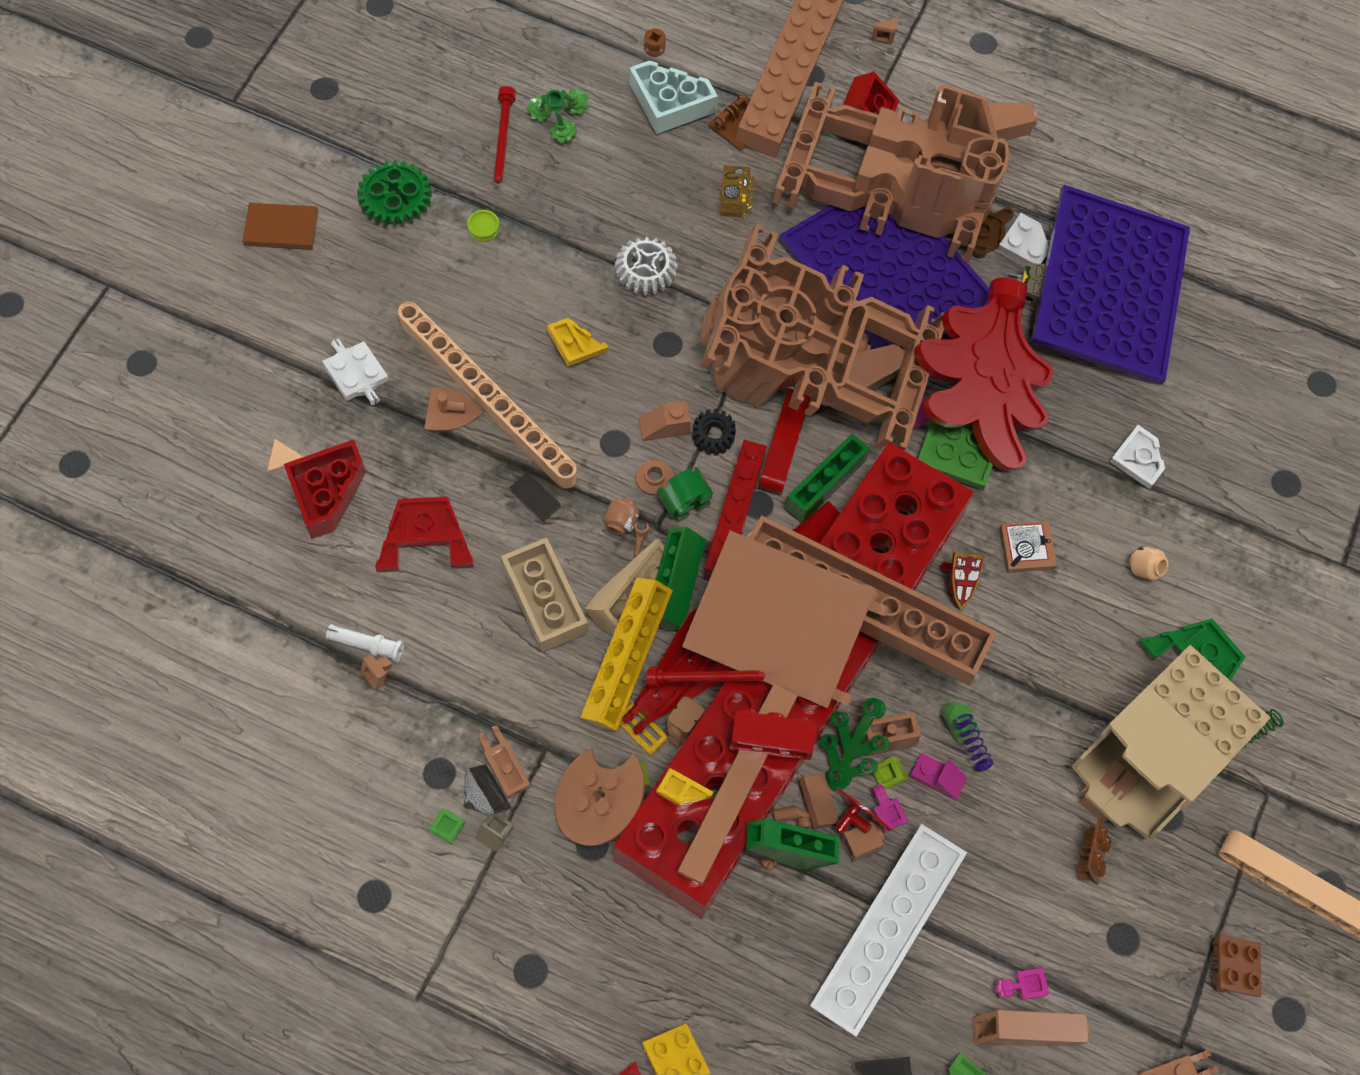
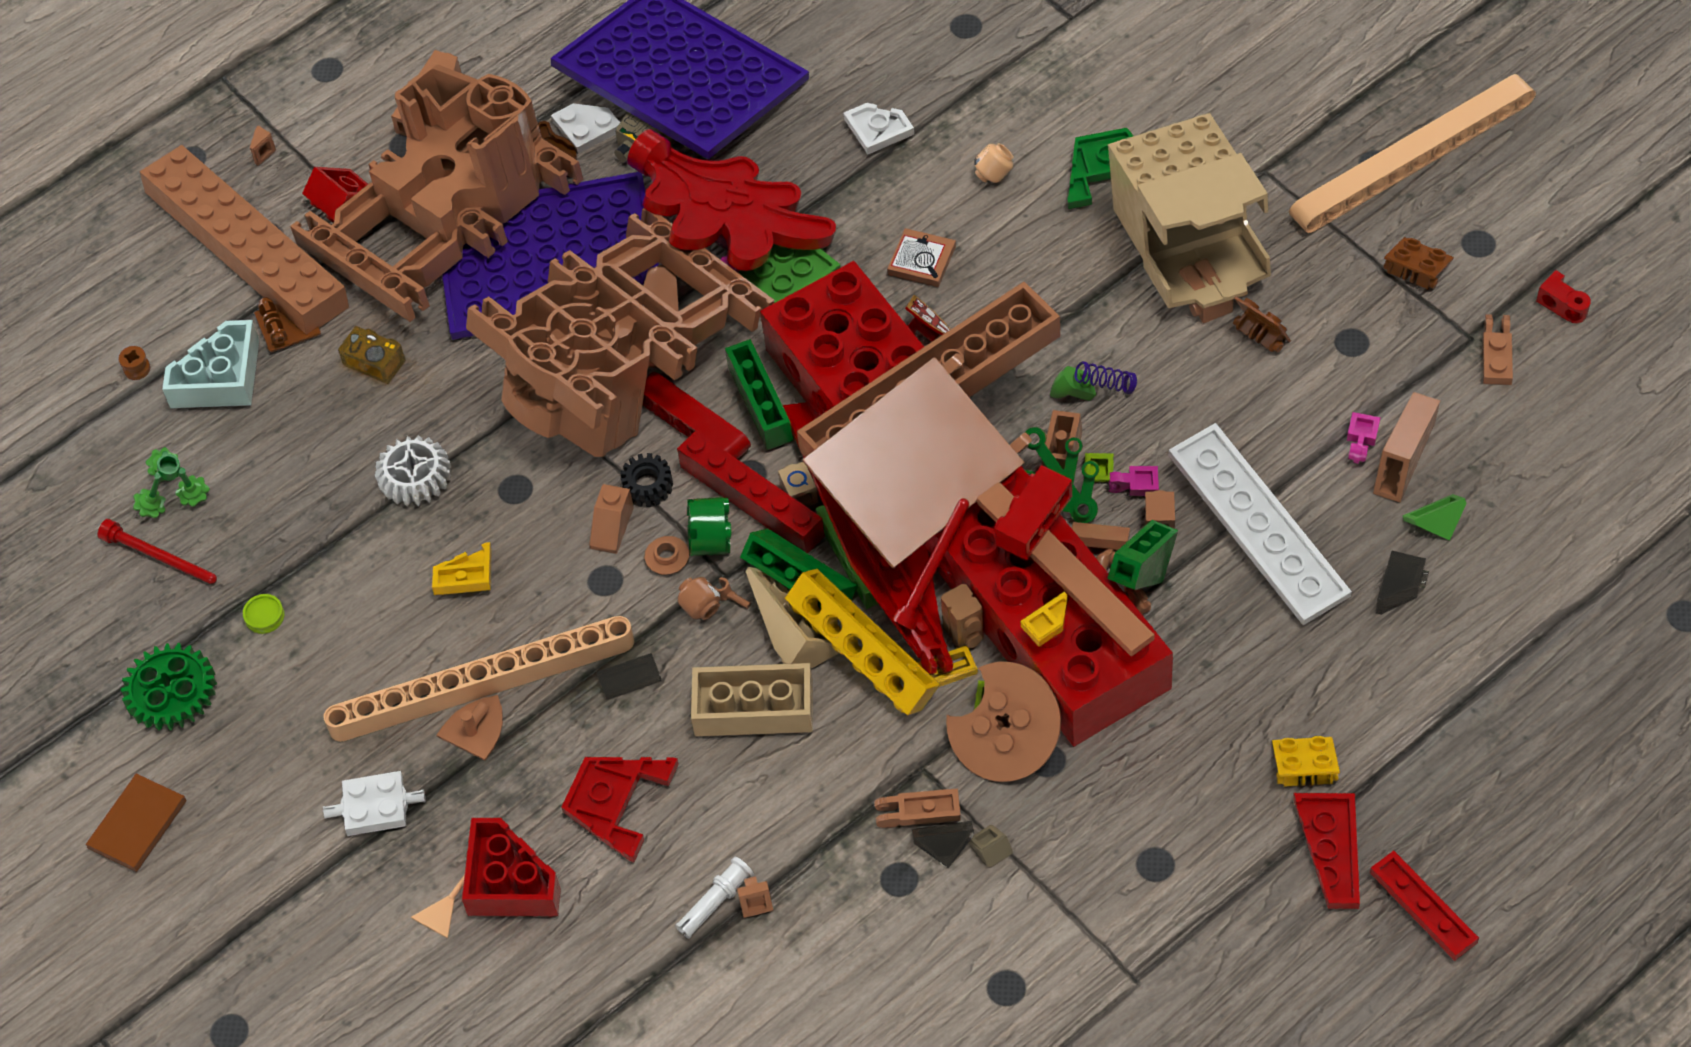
camera: 55 degrees left, 10 degrees down
(447, 826) = (963, 889): bright green tile -> none
(851, 816) = (1133, 498): red shield -> none
(938, 776) = (1121, 427): dark pink slope -> none

